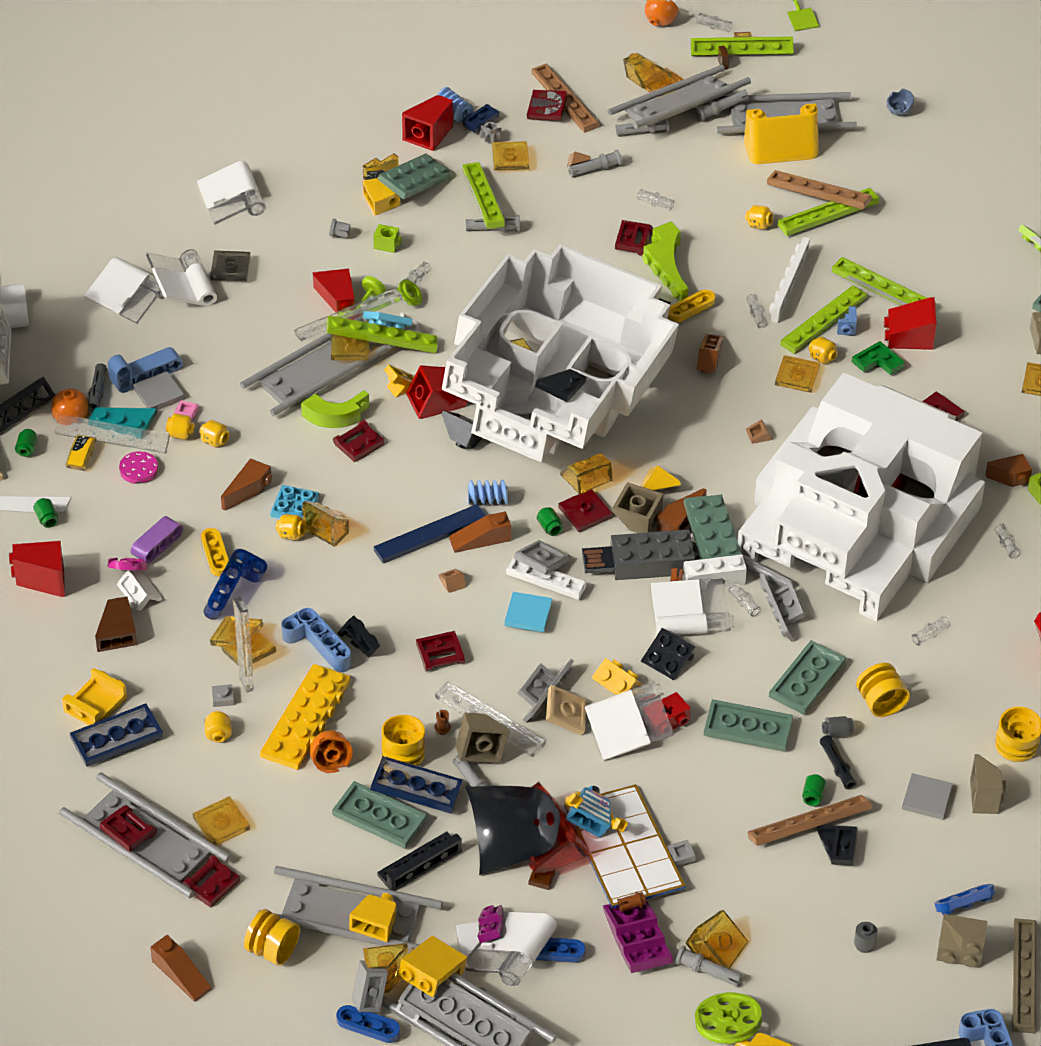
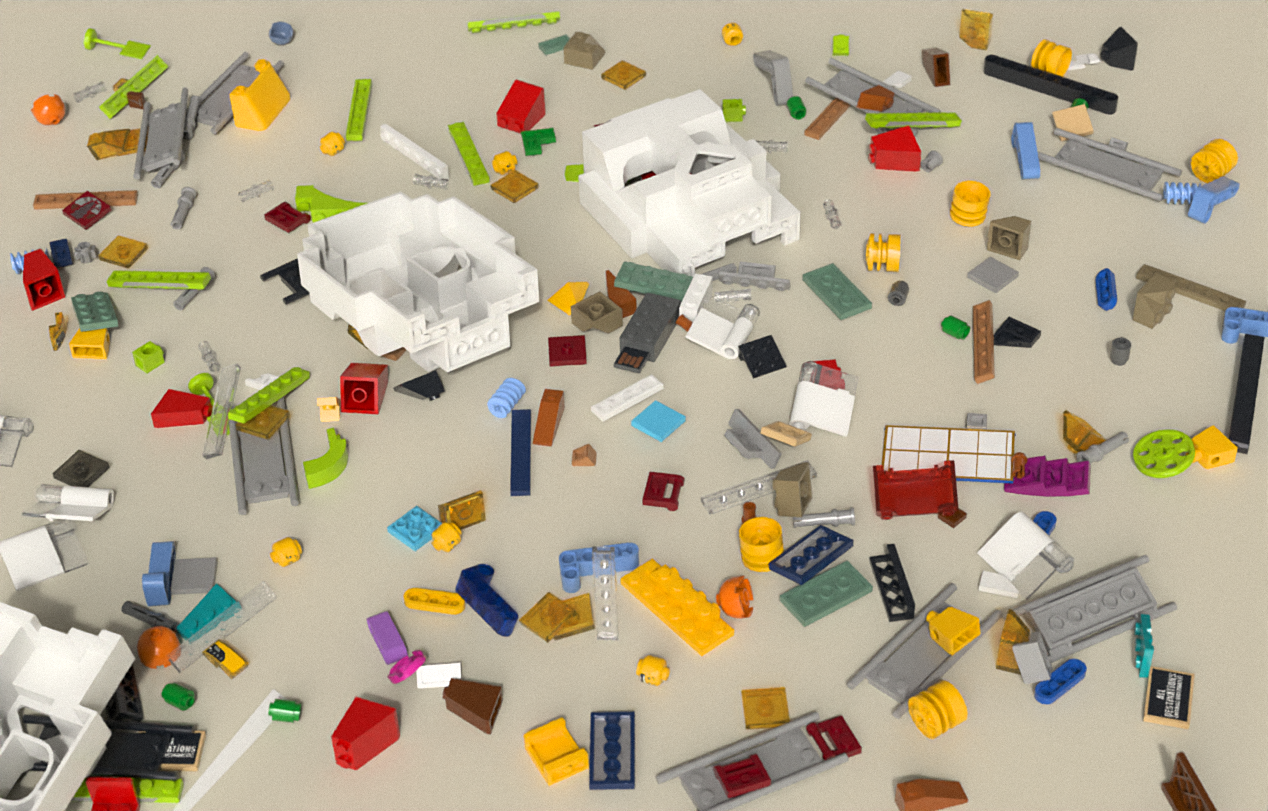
camera: 60 degrees left, 5 degrees down
(138, 467) = (279, 622): dark pink tile -> none
(180, 426) = (257, 571): yellow head -> none
(187, 408) = (235, 564): bright pink tile -> none
(222, 695) = (613, 656): light grey plate -> none
(247, 483) = (365, 545): dark orange slope -> none
(339, 228) = (105, 383): light grey bush -> none
(361, 445) = (380, 457): dark red plate -> none
(361, 638) = (615, 532): black wing -> none
(387, 319) = (256, 385): medium azure tile -> none
(407, 288) = (227, 361): lime gear -> none
(431, 965) = (1034, 605): yellow panel -> none
(491, 923) = (996, 562): magenta slope -> none
(507, 827) = (903, 518): black piece -> none
(541, 557) = (605, 390): light grey tile -> none
(549, 521) = (566, 372): green brick -> none
(562, 384) = (460, 285): black wing -> none
(576, 158) = (168, 215): medium nougat slope -> none
(588, 473) = (531, 330): clear yellow slope -> none
(592, 812) = (915, 452): torso -> none
(614, 678) = (768, 395): yellow bracket -> none
(748, 725) = (865, 339): sand green plate -> none
(759, 432) = (559, 227): medium nougat slope -> none
(819, 189) = (332, 104): medium nougat tile -> none
(841, 768) = (933, 306): black pin -> none
(848, 325) = (486, 138): medium blue bracket -> none
(875, 282) = (460, 112): lime plate -> none

